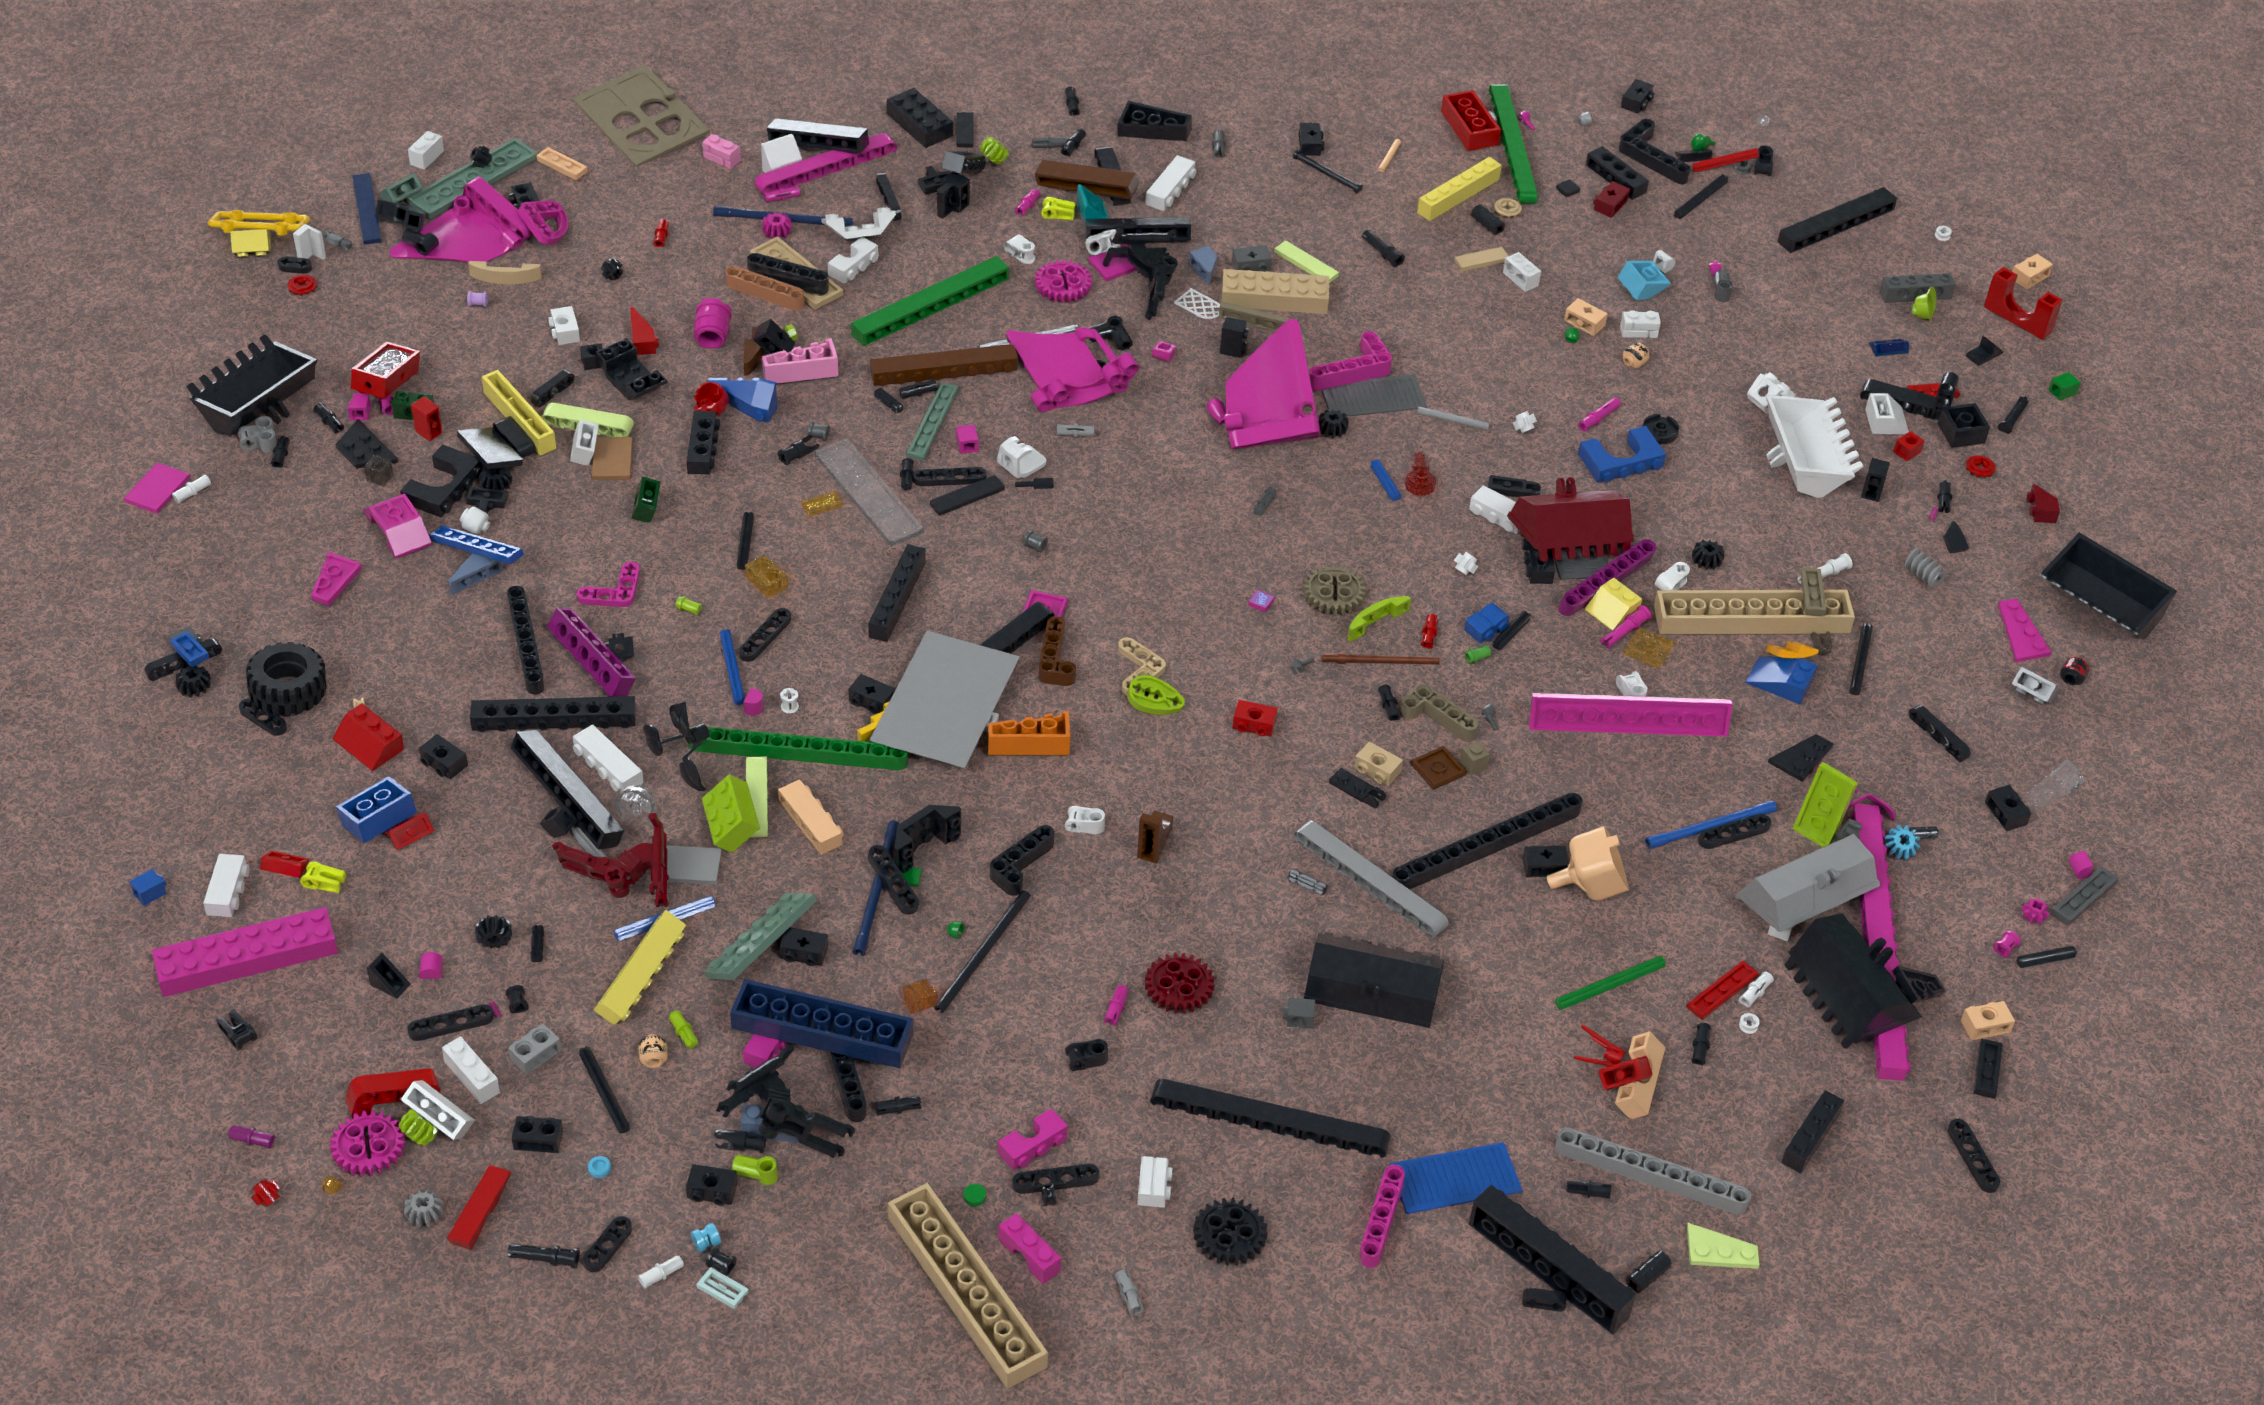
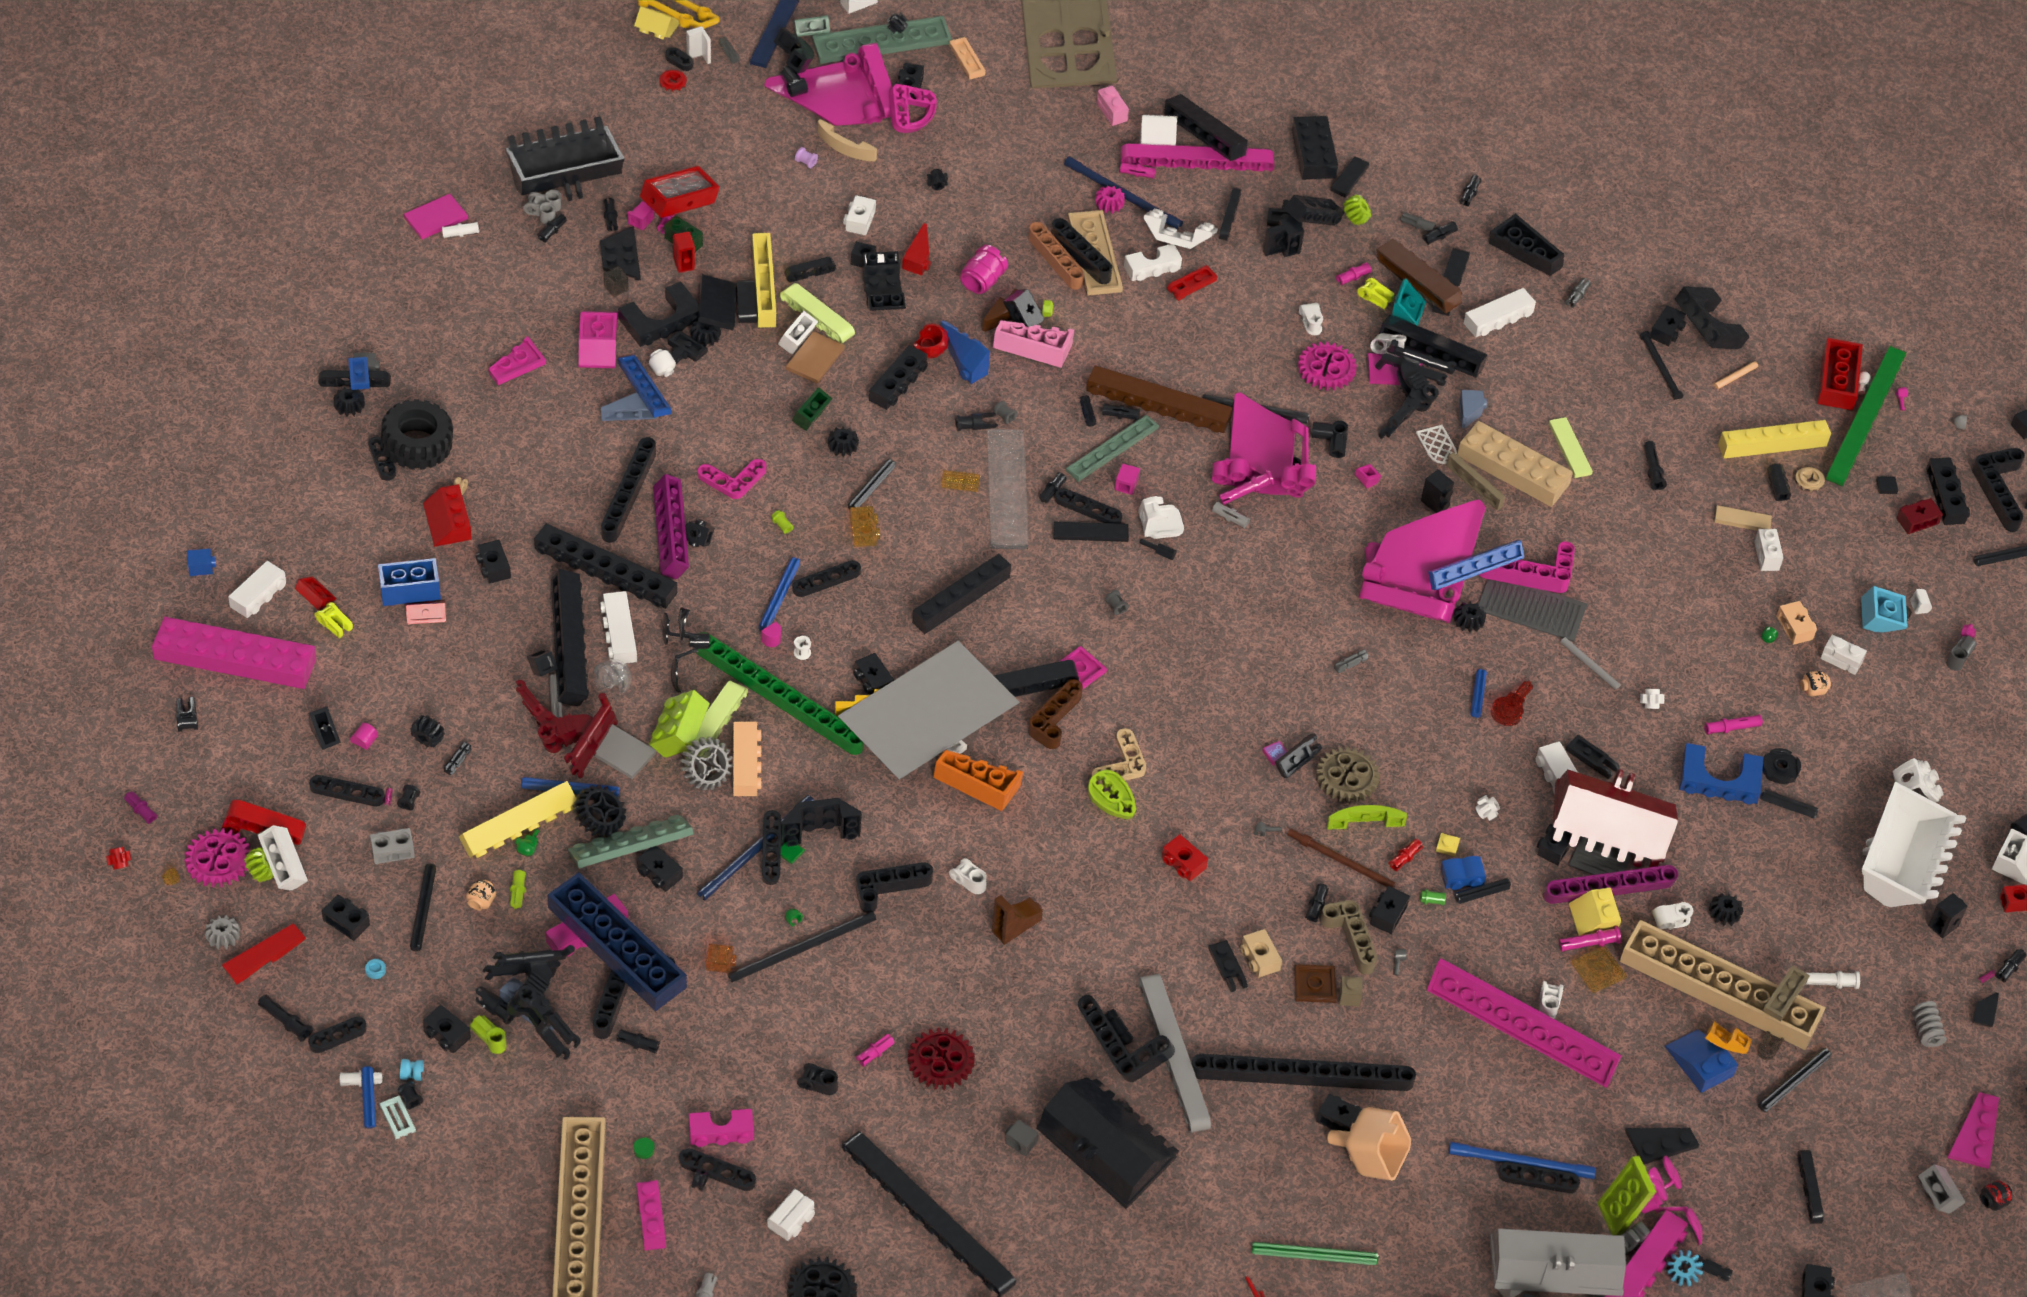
camera: 30 degrees right, 5 degrees up
(470, 1070) = (332, 838): white brick -> none
(661, 233) = (1005, 162): red axle -> none
(663, 987) = (528, 844): none -> green piece
(683, 1283) = (368, 1097): none -> blue axle
(693, 515) = (843, 441): none -> black gear
(712, 923) = (594, 816): none -> black gear
(782, 834) = (703, 771): none -> light grey gear
(898, 262) = (1192, 282): none -> red plate
(929, 301) = (1192, 332): green brick -> none
(1079, 396) = (1255, 484): none -> dark pink pin
(1252, 258) = (1517, 422): dark grey brick -> none
(1283, 594) = (1298, 756): none -> black hinge
(1315, 376) = (1476, 564): none -> tile
(1321, 894) = (1116, 1045): none -> black beam
(1324, 112) = (1697, 305): none -> black arch
(1453, 679) = (1389, 910): none -> black brick
(1455, 608) = (1447, 844): none -> light yellow plate
(1690, 454) = (1789, 803): none -> black axle

